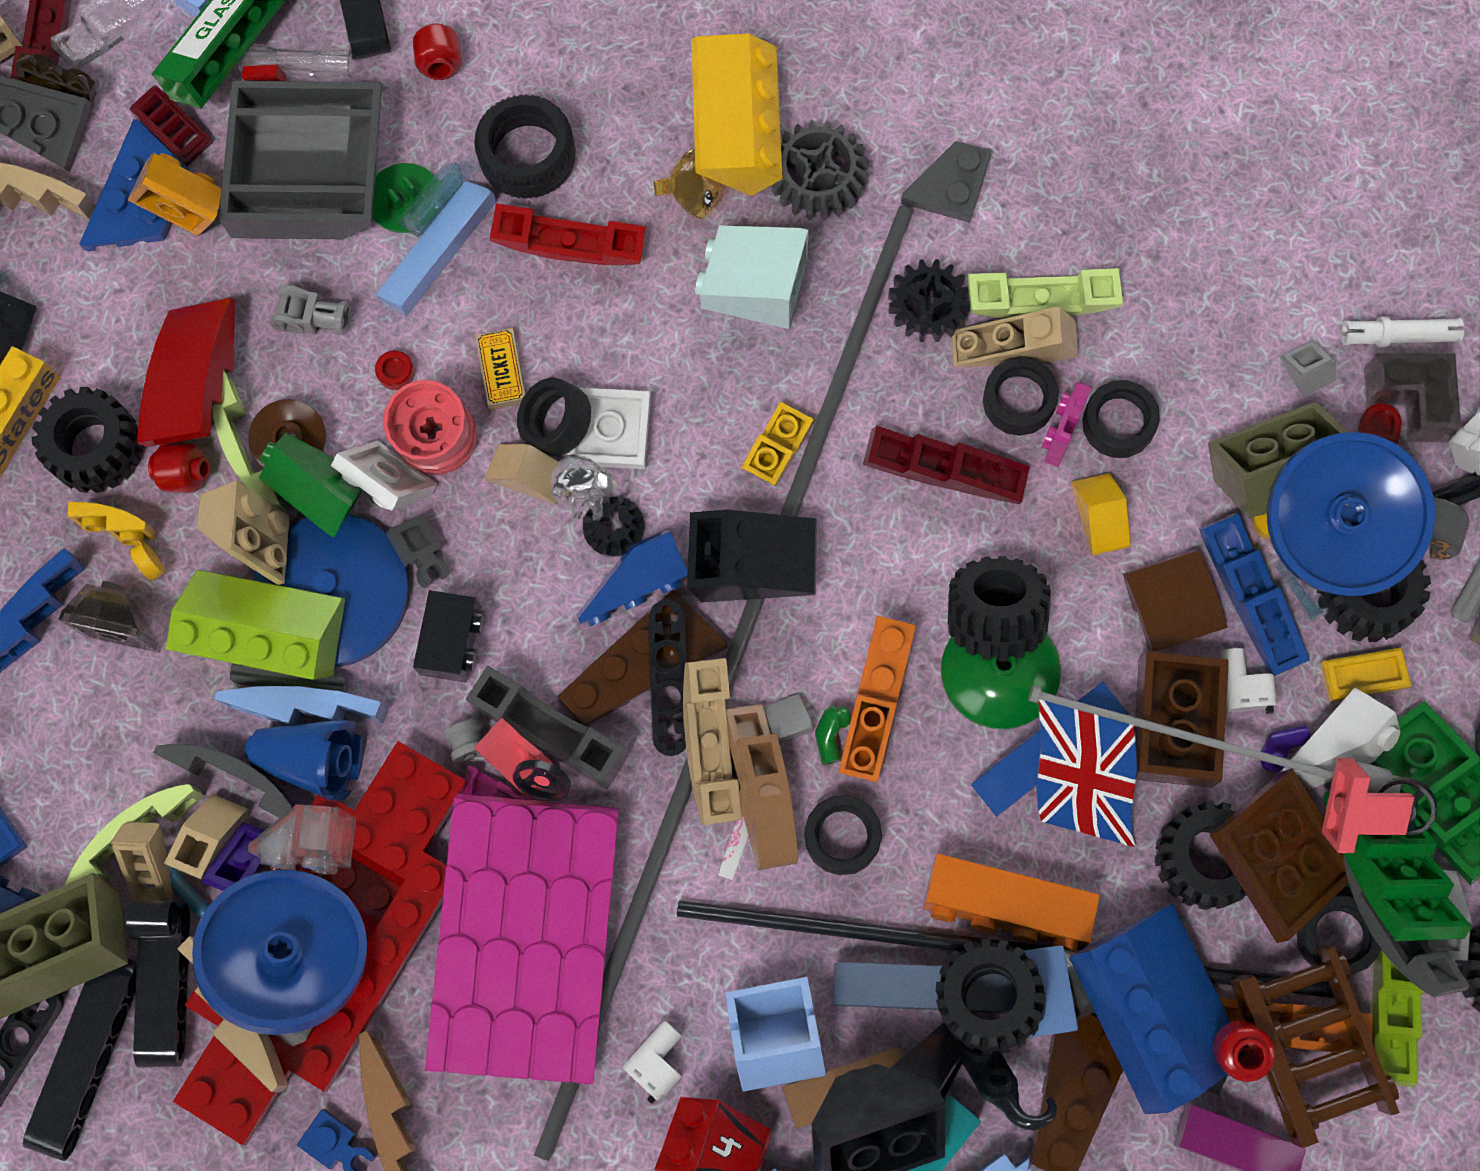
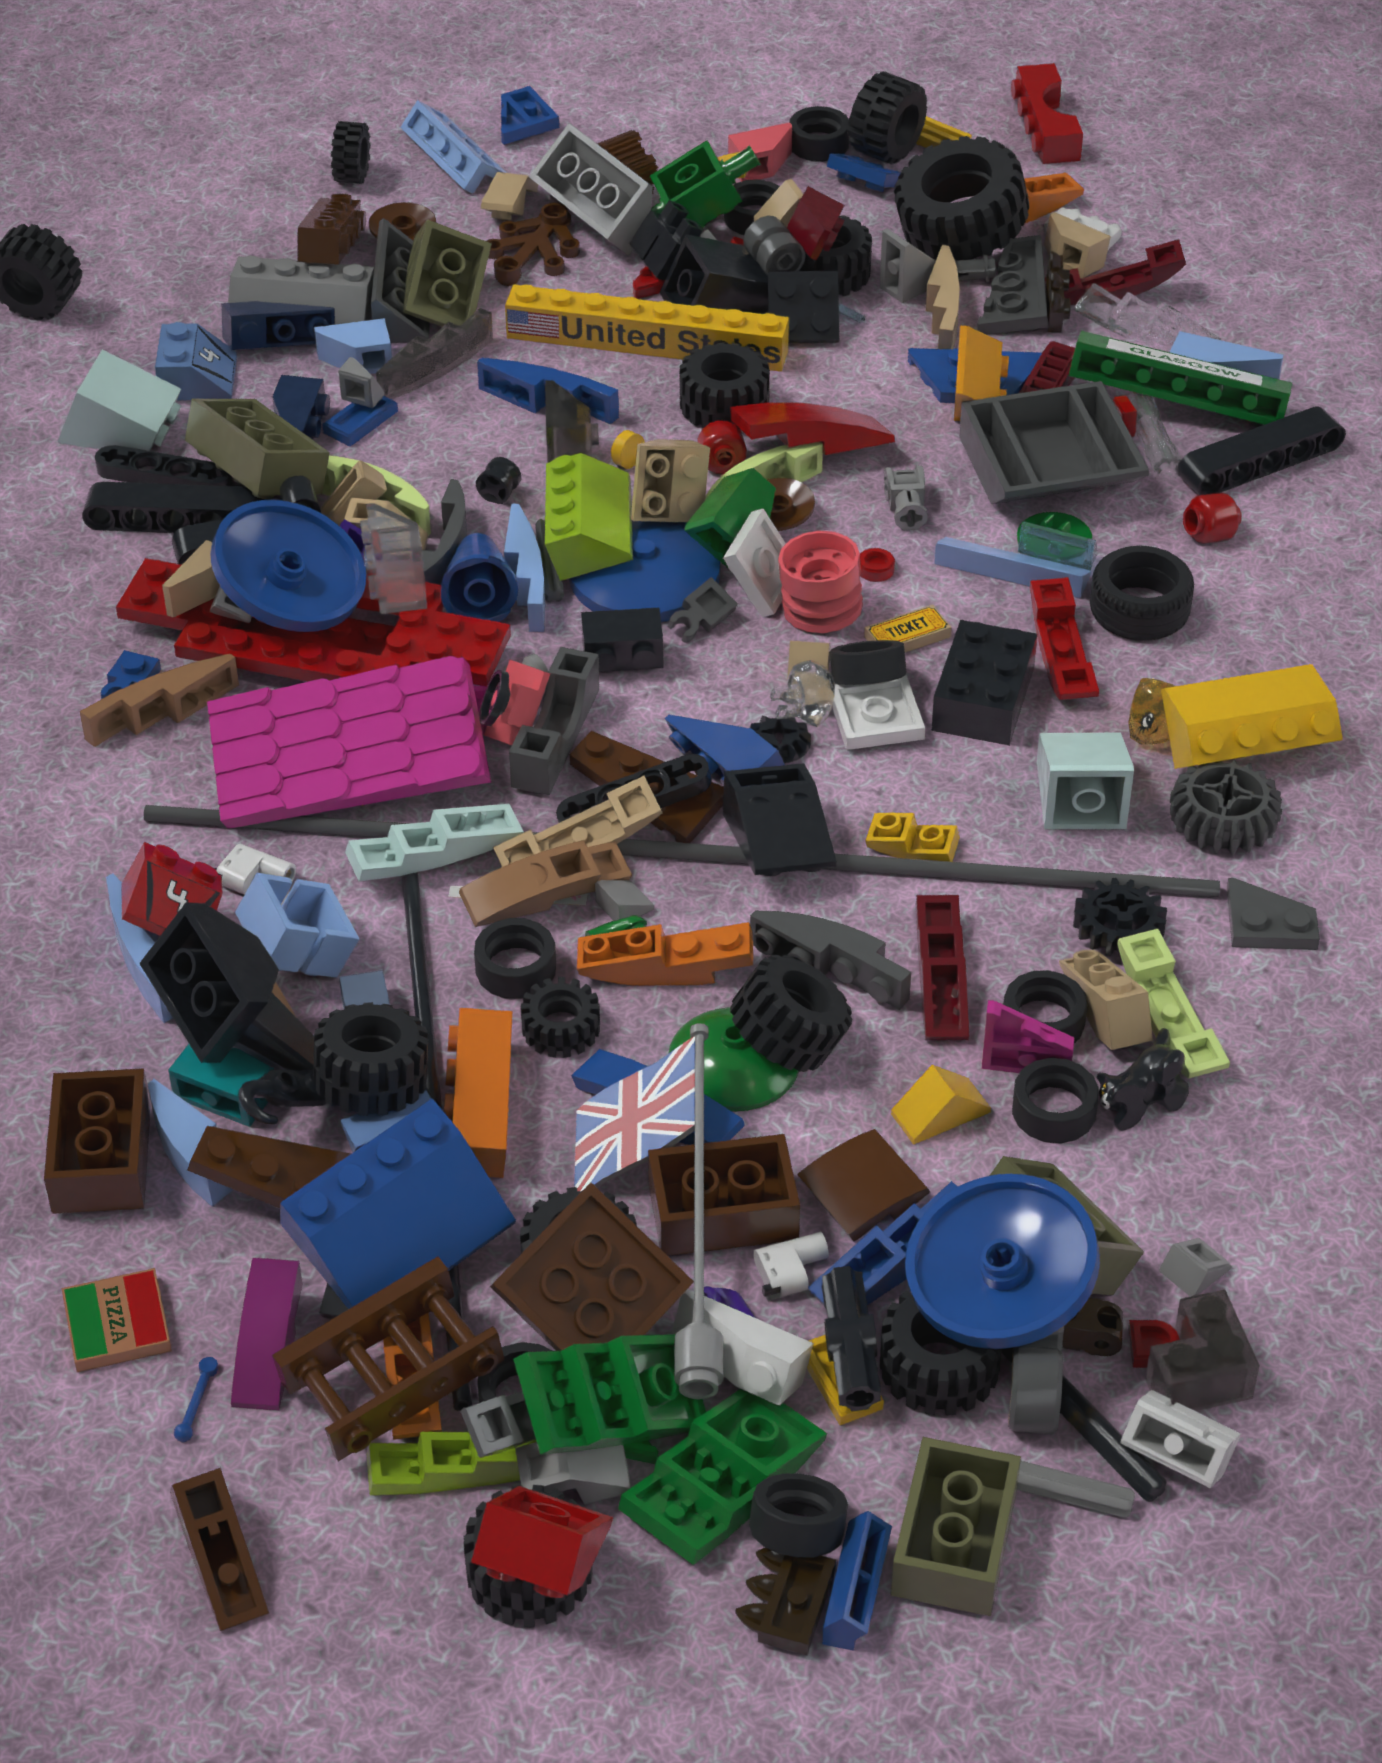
camera: 70 degrees right, 30 degrees down
(120, 524) = (654, 414): yellow slope -> none
(153, 703) = (498, 480): none -> black wheel
(604, 320) = (984, 682): none -> black brick
(681, 880) = (422, 846): none -> light aqua slope
(901, 562) = (835, 949): none -> dark grey slope
(931, 786) = (560, 1035): none -> black tyre
(1120, 332) = (1147, 1081): none -> black animal
(1256, 1055) = (362, 1270): red head -> none
(1355, 656) = (851, 1338): none -> black piece
(1356, 812) = (658, 1334): coral piece -> none
(1388, 331) = (1270, 1324): white pin -> none

